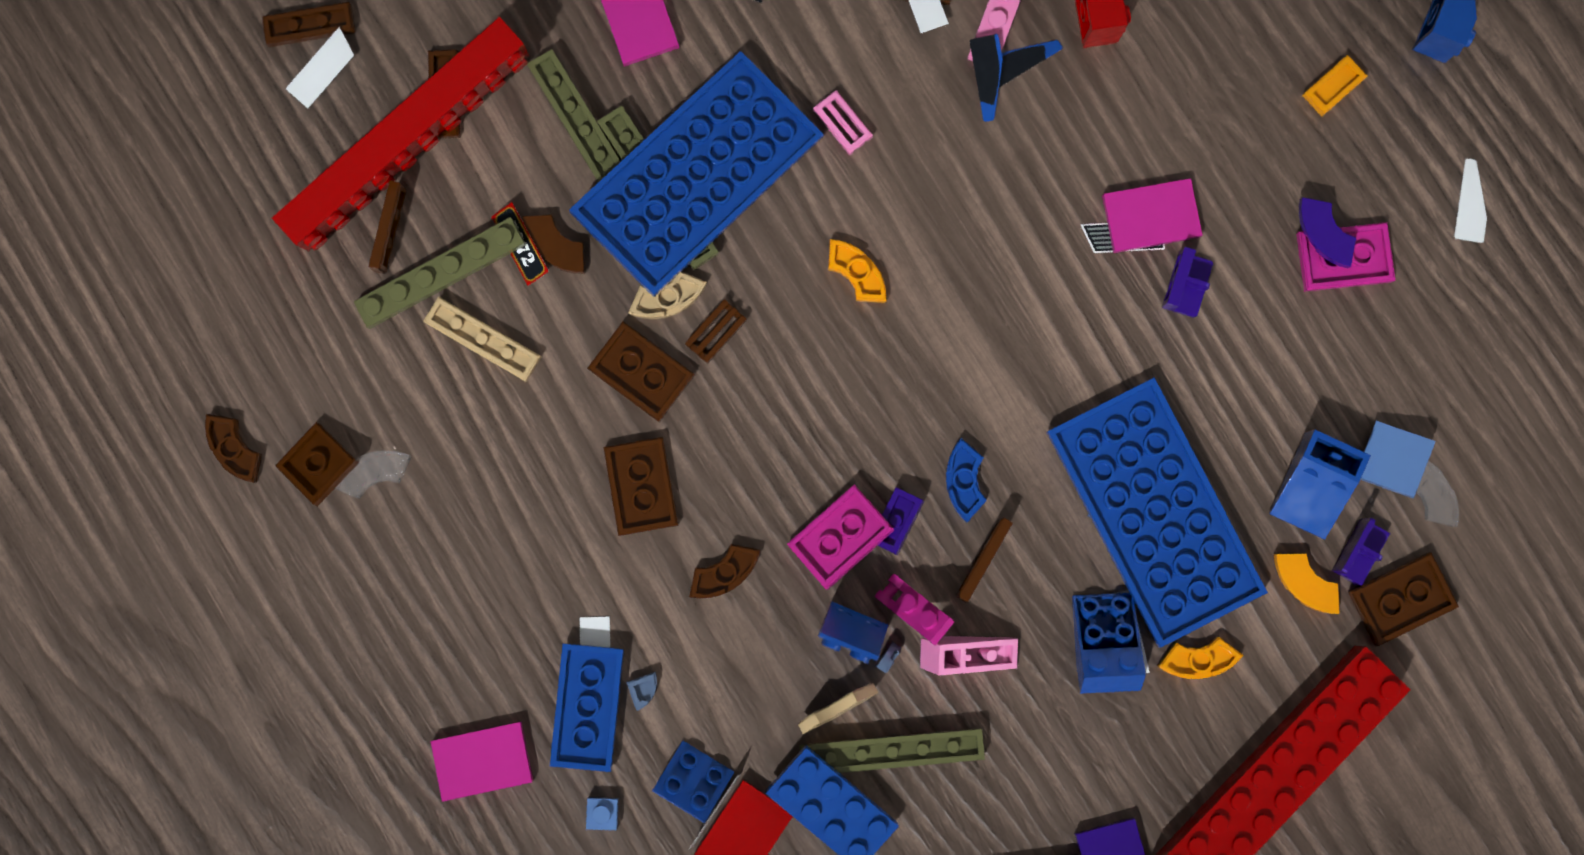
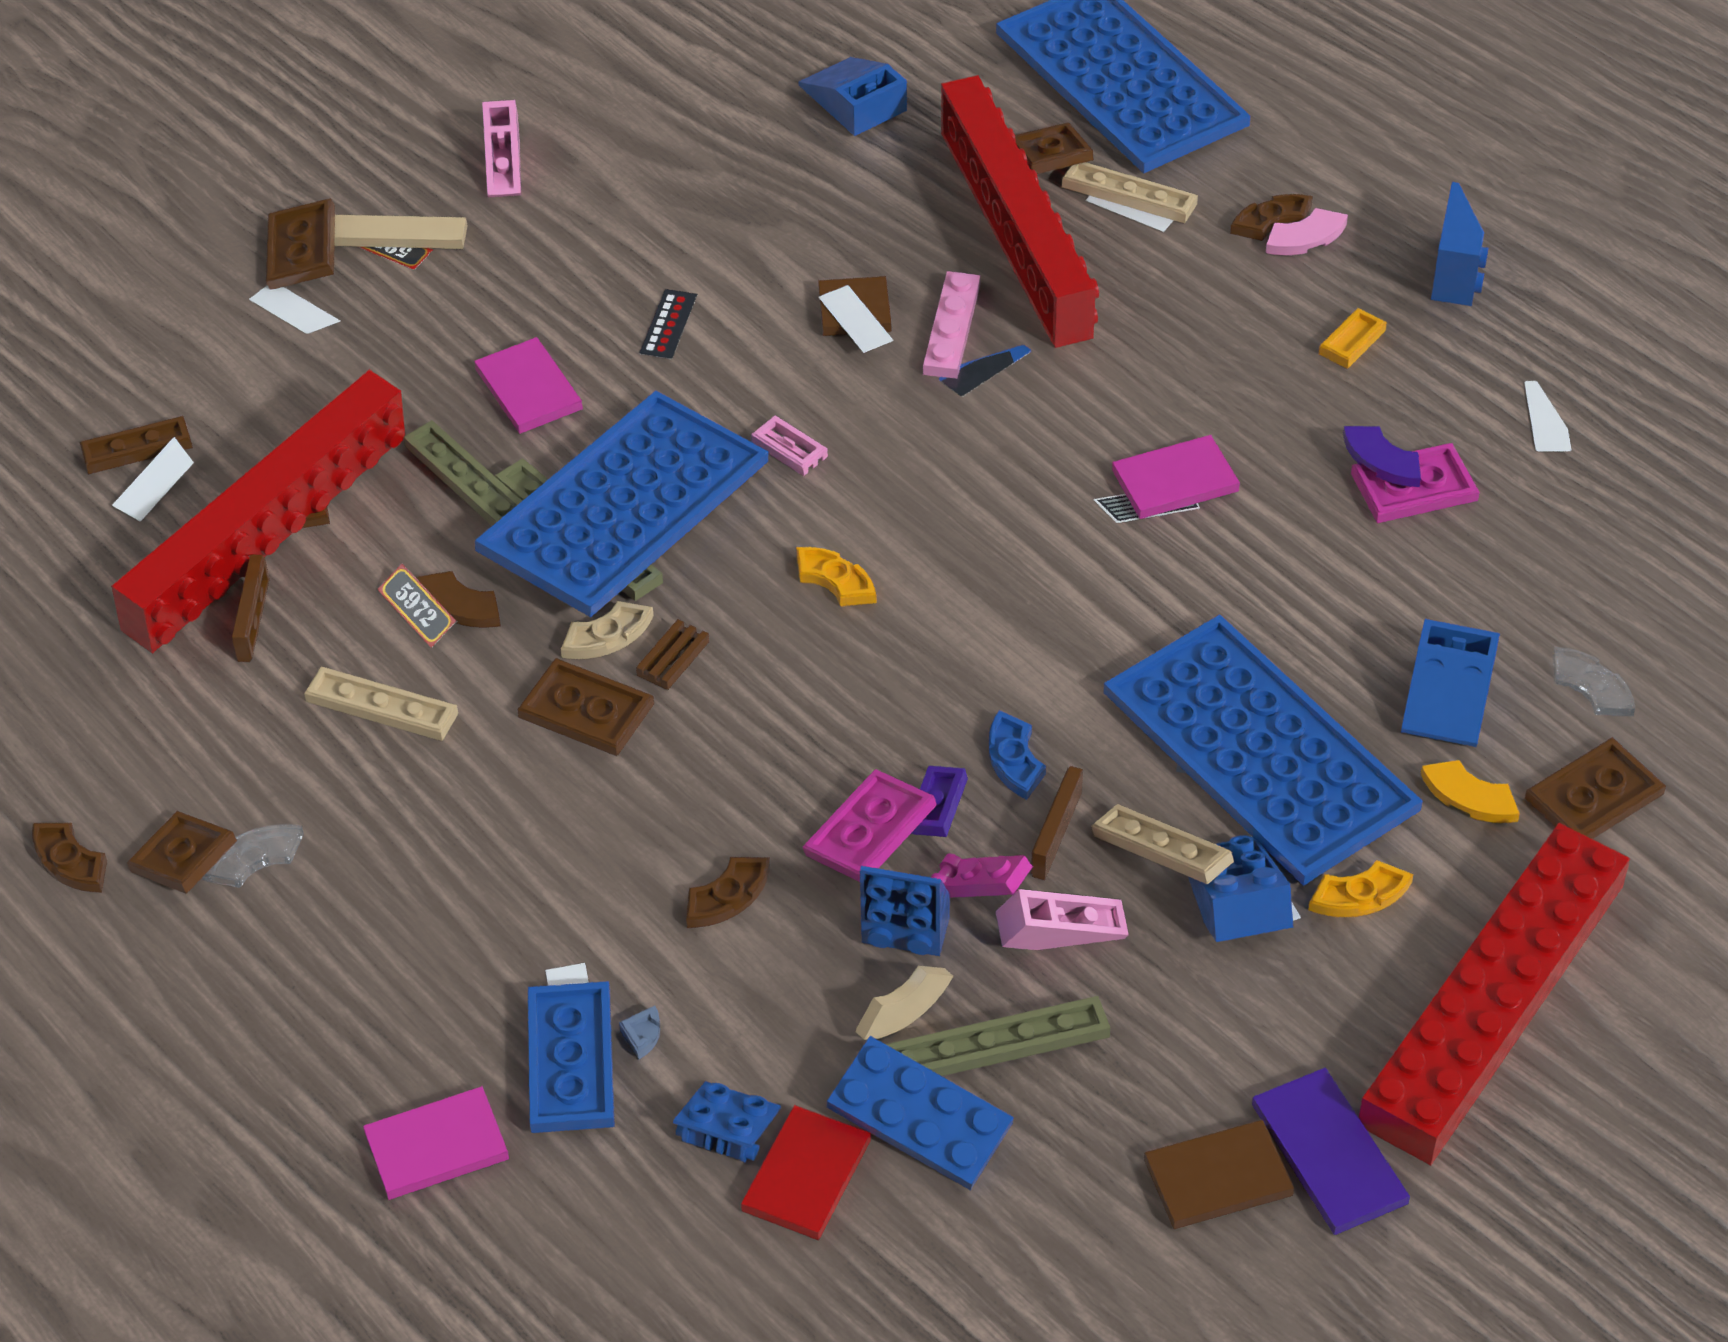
camera: 10 degrees left, 35 degrees down
(439, 273) = (319, 644): olive plate -> none
(602, 813) = (609, 1177): medium blue plate -> none
(640, 486) = (604, 820): reddish brown tile -> none
(715, 810) = (762, 1143): white sticker -> none
(888, 657) = (957, 946): sand blue tile -> none
(987, 66) = (949, 374): black sticker -> none
(1059, 603) = (1162, 844): none -> tan tile
(1187, 283) = (1235, 530): dark purple panel -> none
(1361, 551) = (1525, 749): dark purple panel -> none
(1396, 459) = (1535, 652): medium blue tile -> none

